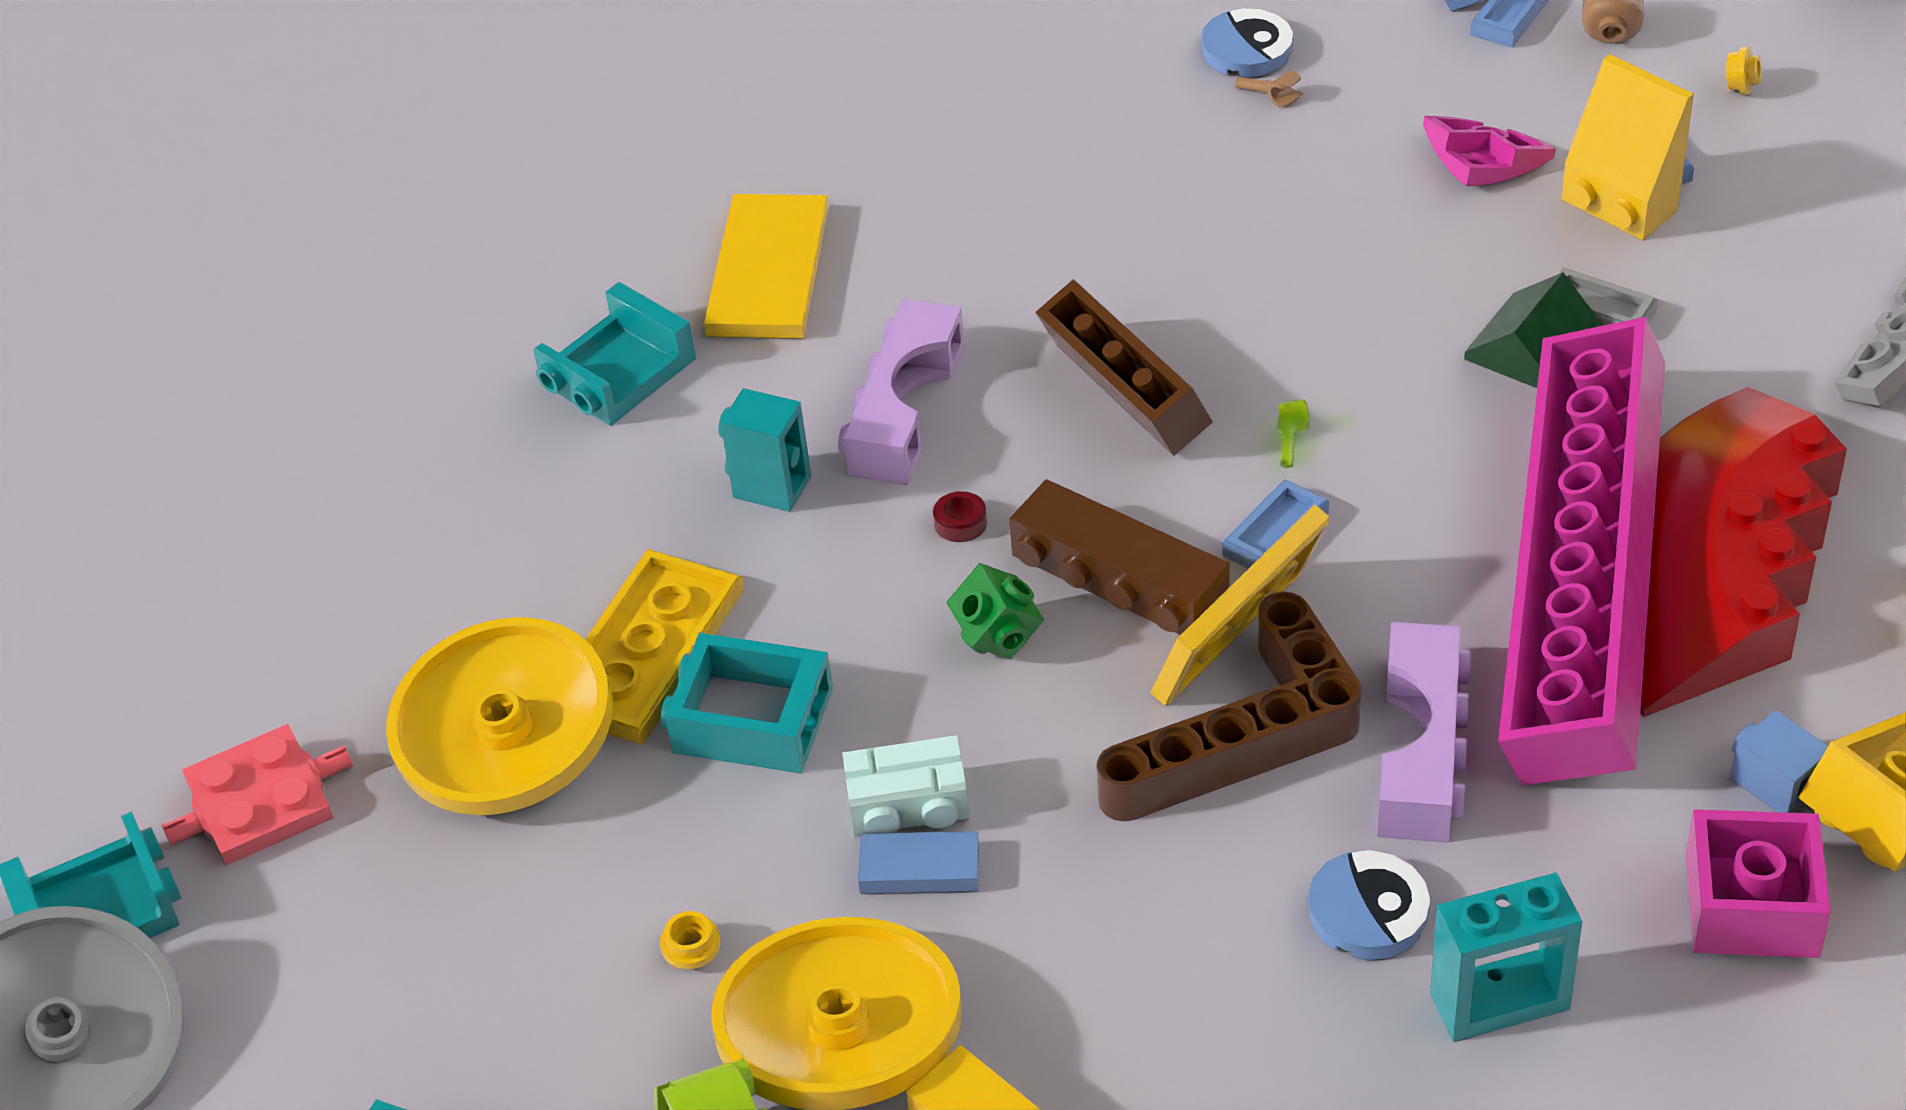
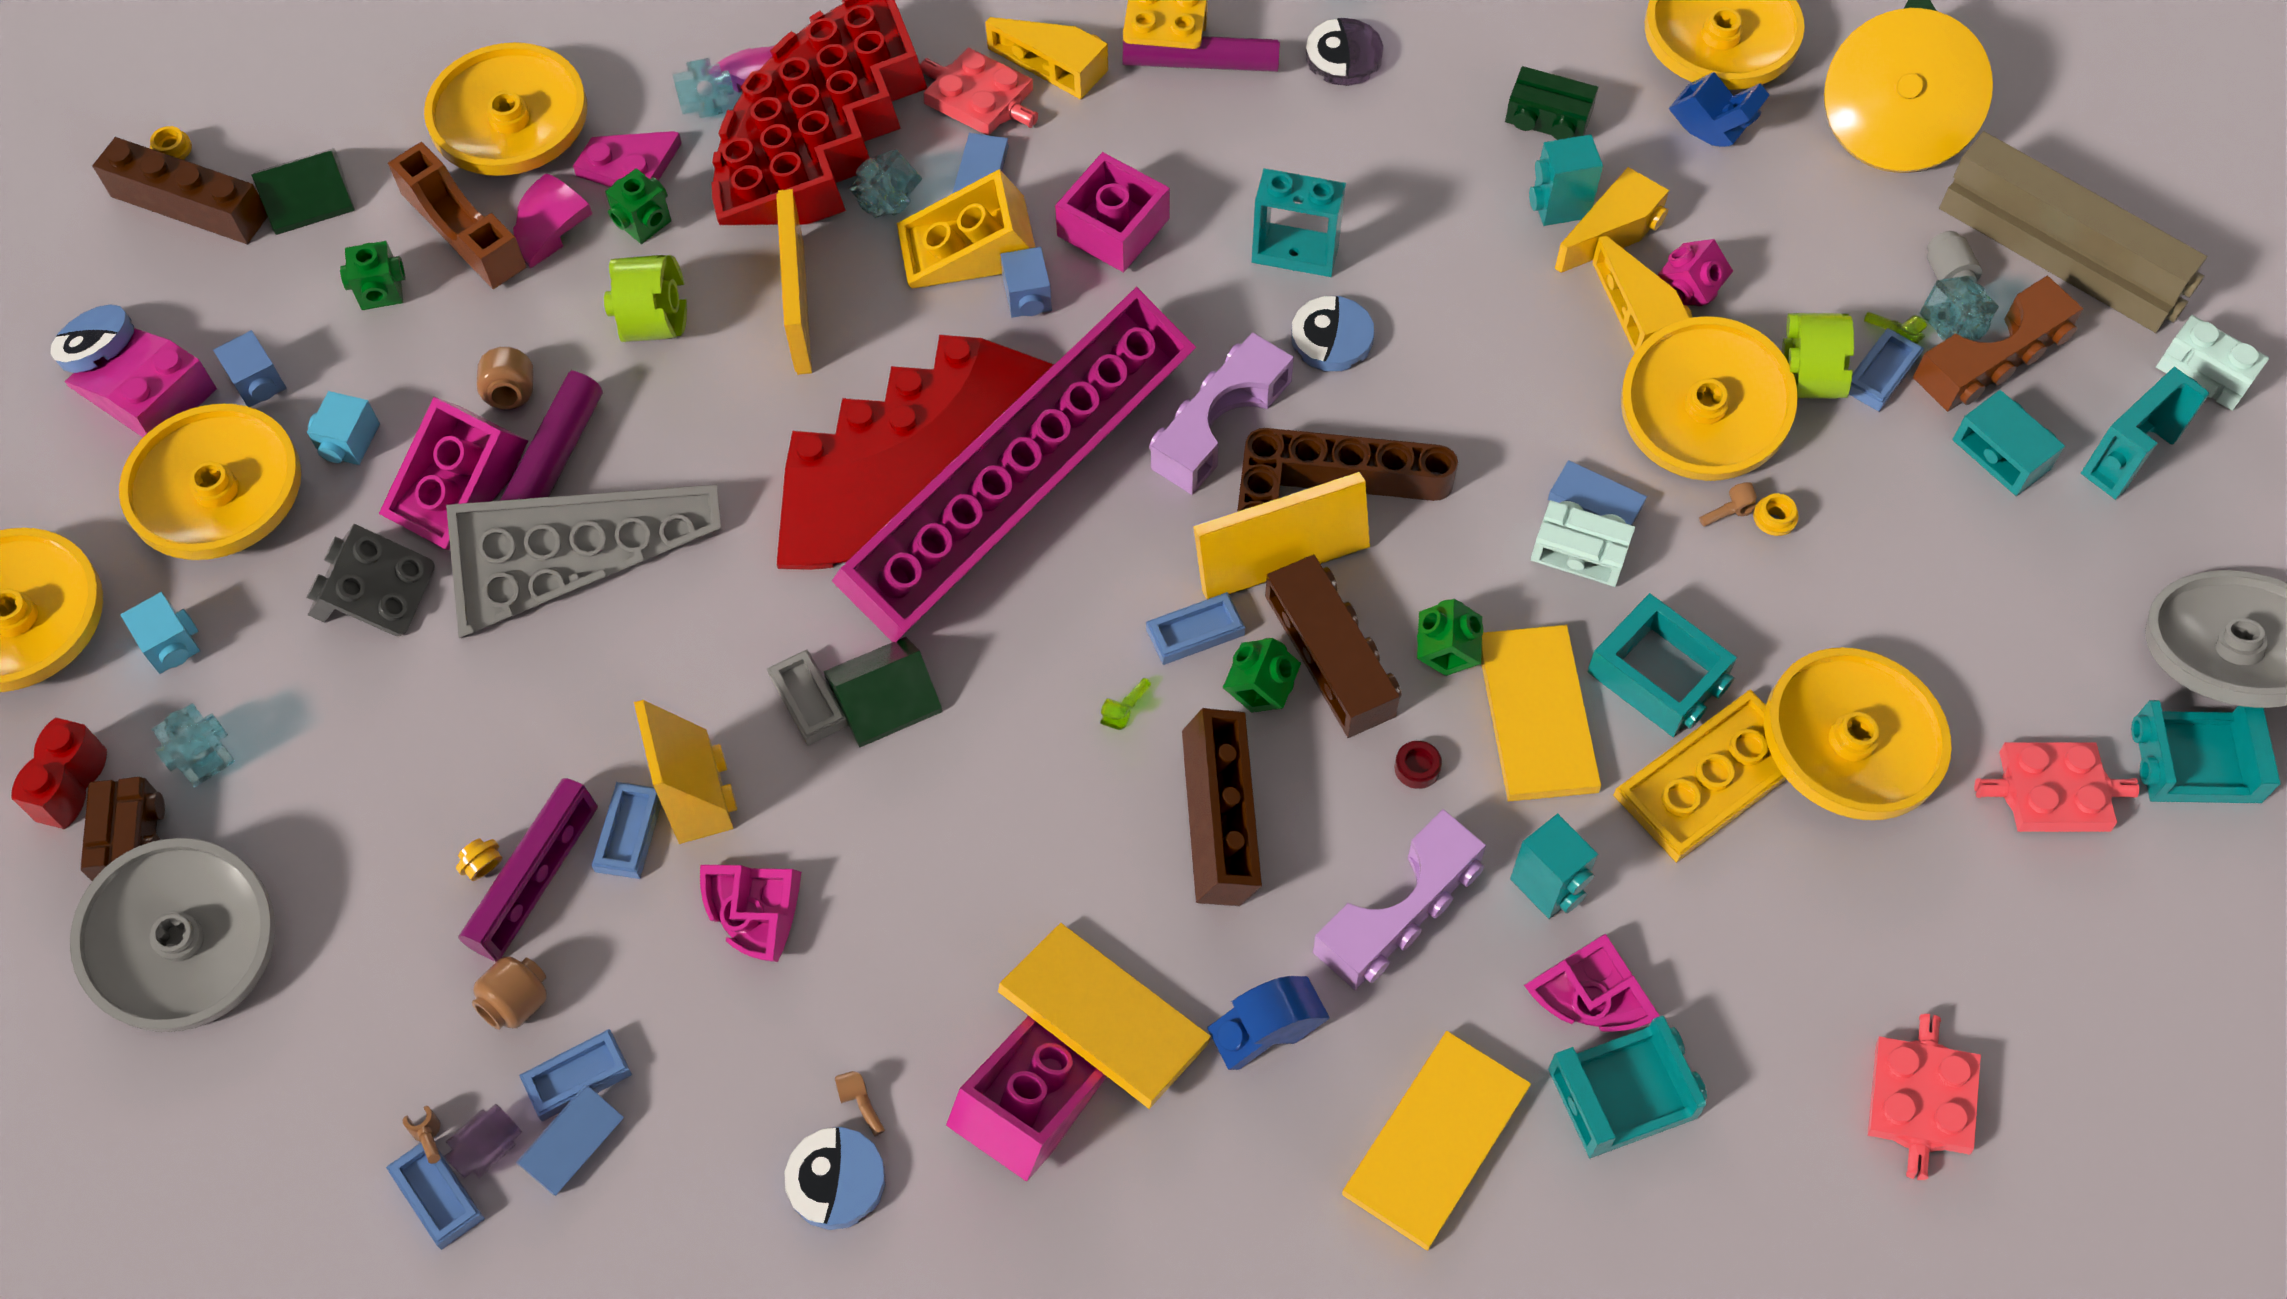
camera: 155 degrees left, 15 degrees up
(330, 474) = (1924, 1096): none -> coral plate
(678, 421) = (1594, 990): none -> dark pink brick
(741, 936) = (1743, 504): none -> medium nougat hand
(864, 616) = (1538, 713): none -> yellow tile
(959, 250) = (1265, 1016): none -> blue brick
(1114, 207) = (1104, 1015): none -> yellow tile
(1132, 134) = (1024, 1098): none -> dark pink slope
(1167, 489) = (1262, 675): none -> green brick
(1690, 67) = (529, 870): none -> magenta brick

